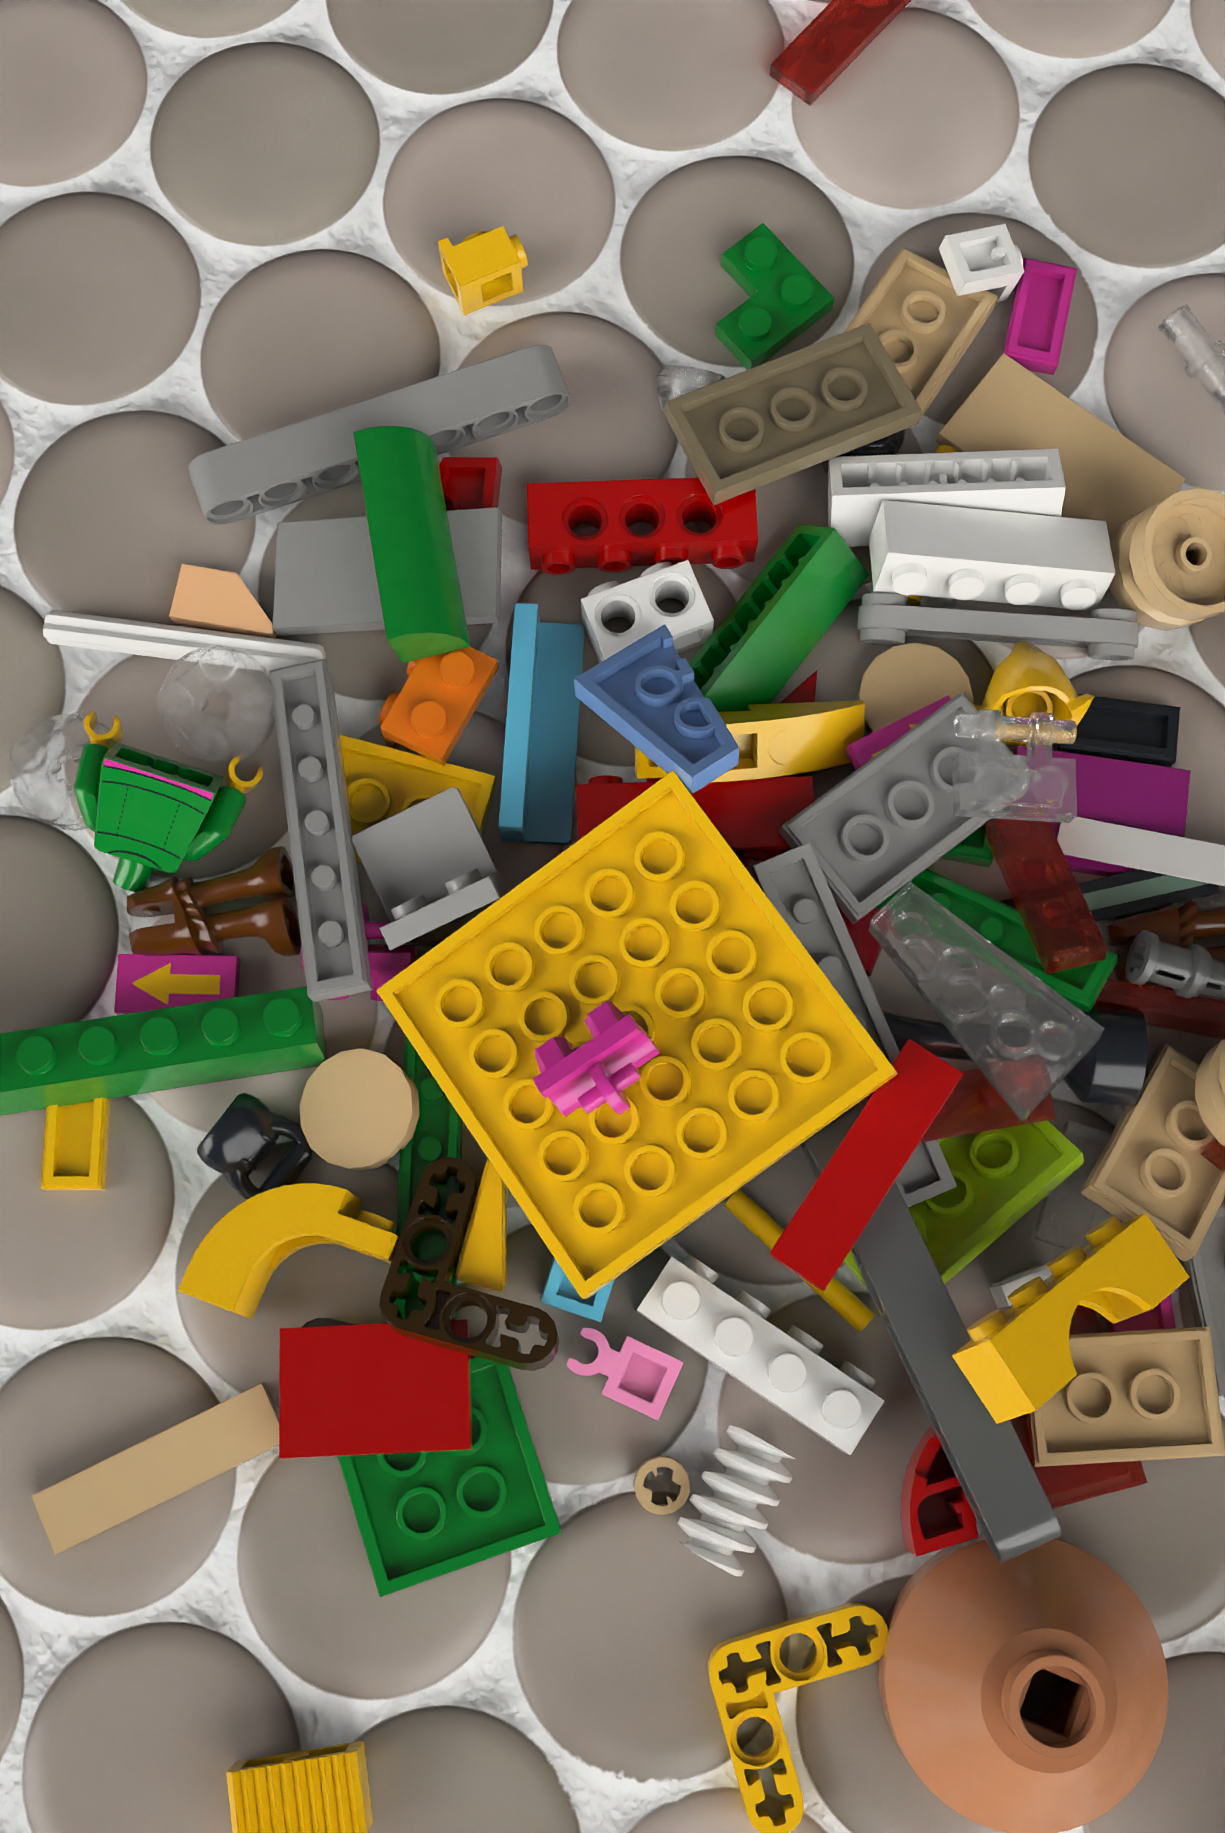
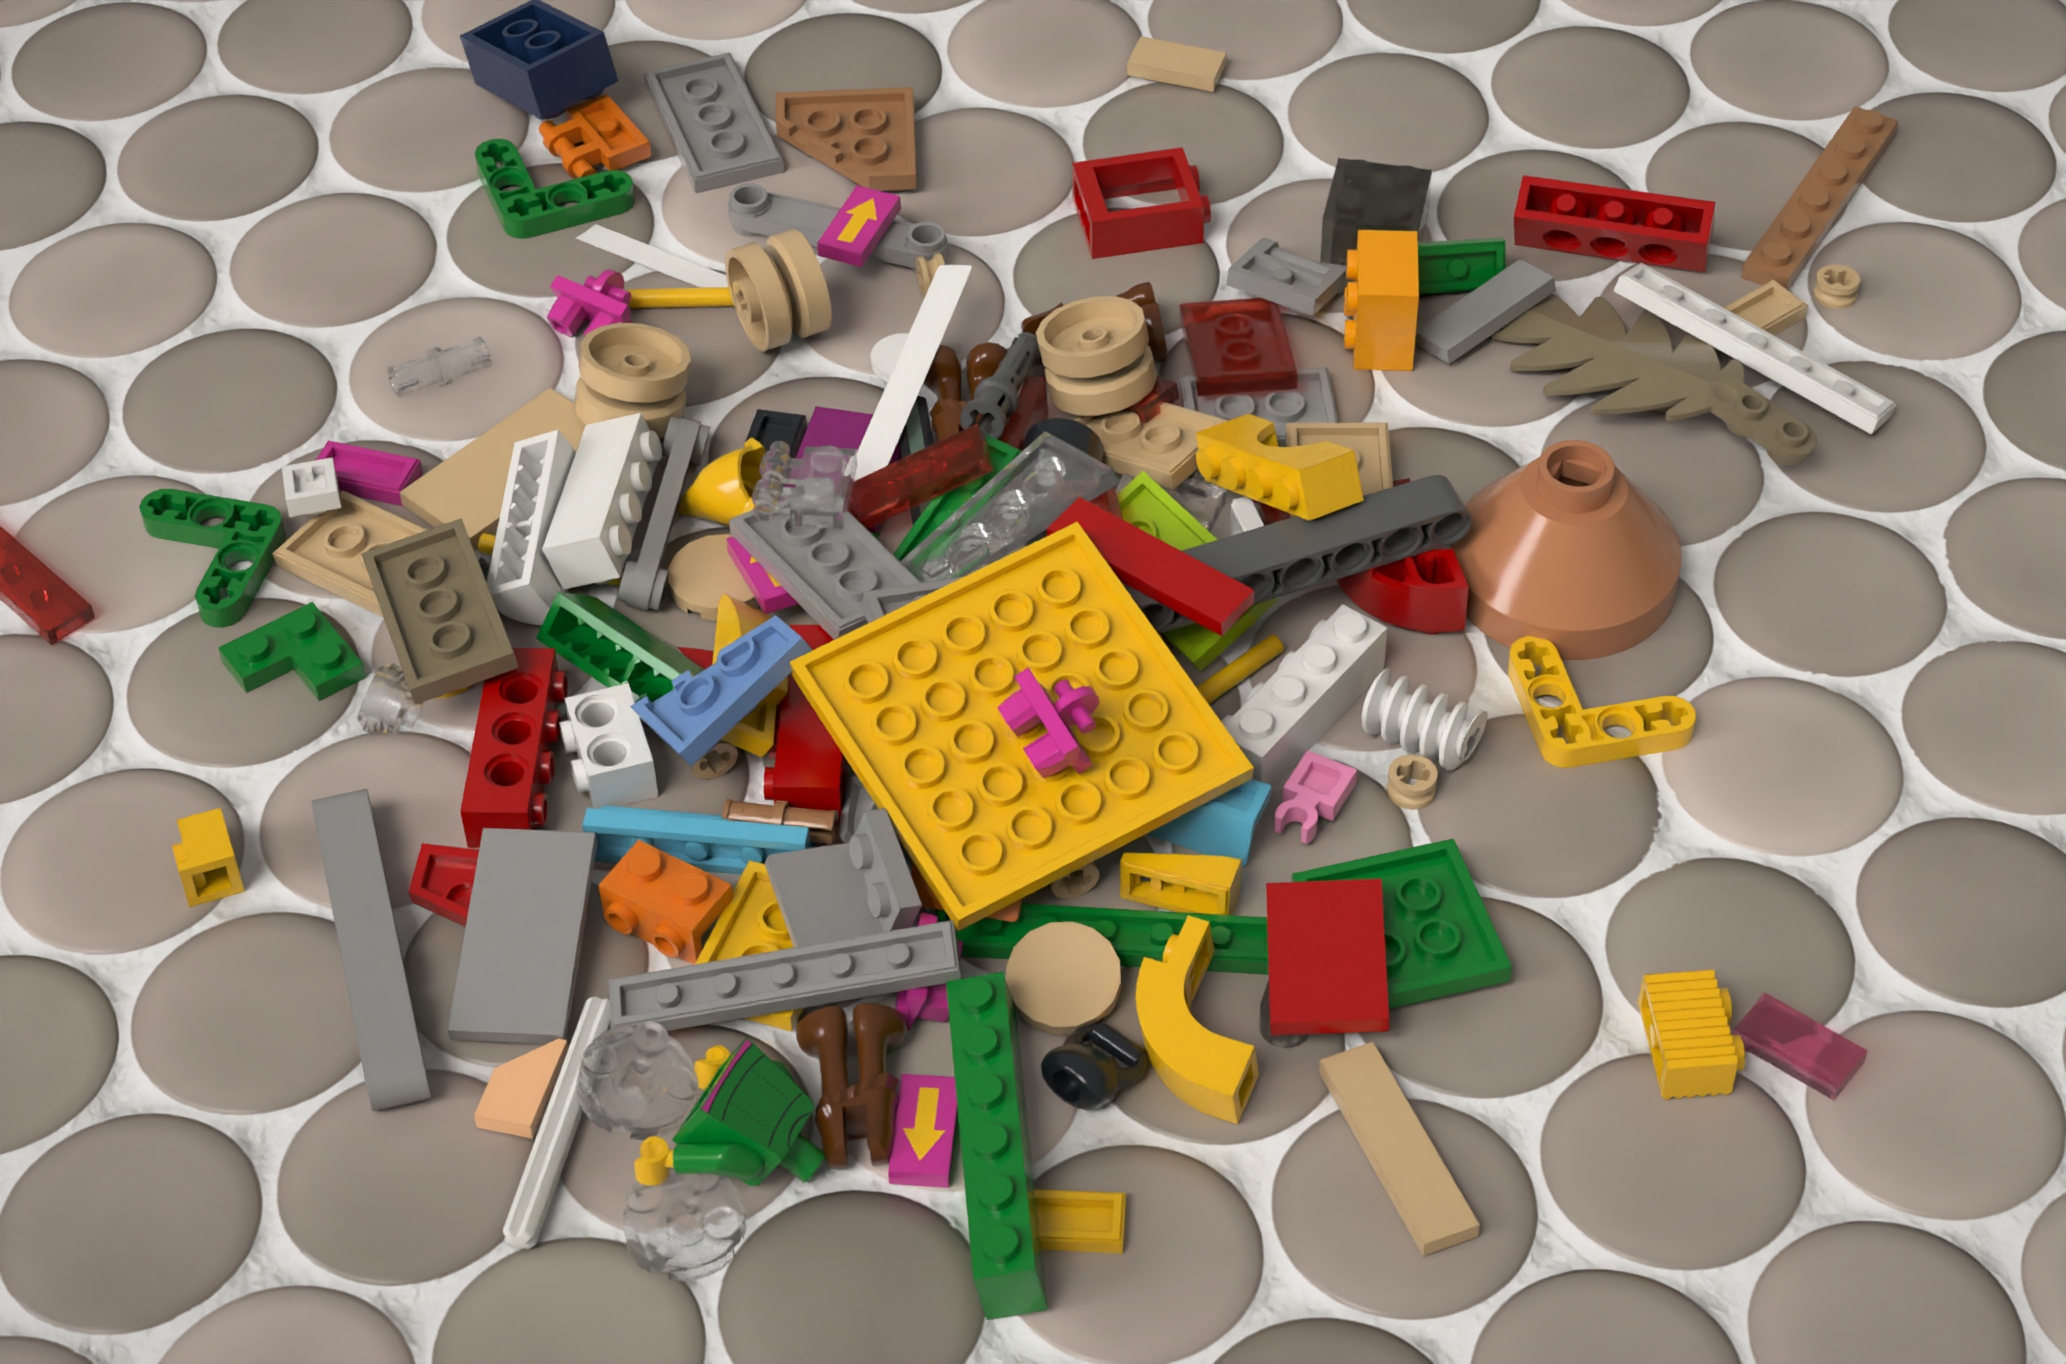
camera: 85 degrees left, 30 degrees down
(411, 542) = (508, 892): green brick -> none
(445, 1299) = (1243, 896): dark brown beam -> none
(554, 799) = (819, 821): none -> medium nougat pin
(915, 213) = (247, 533): none -> green beam

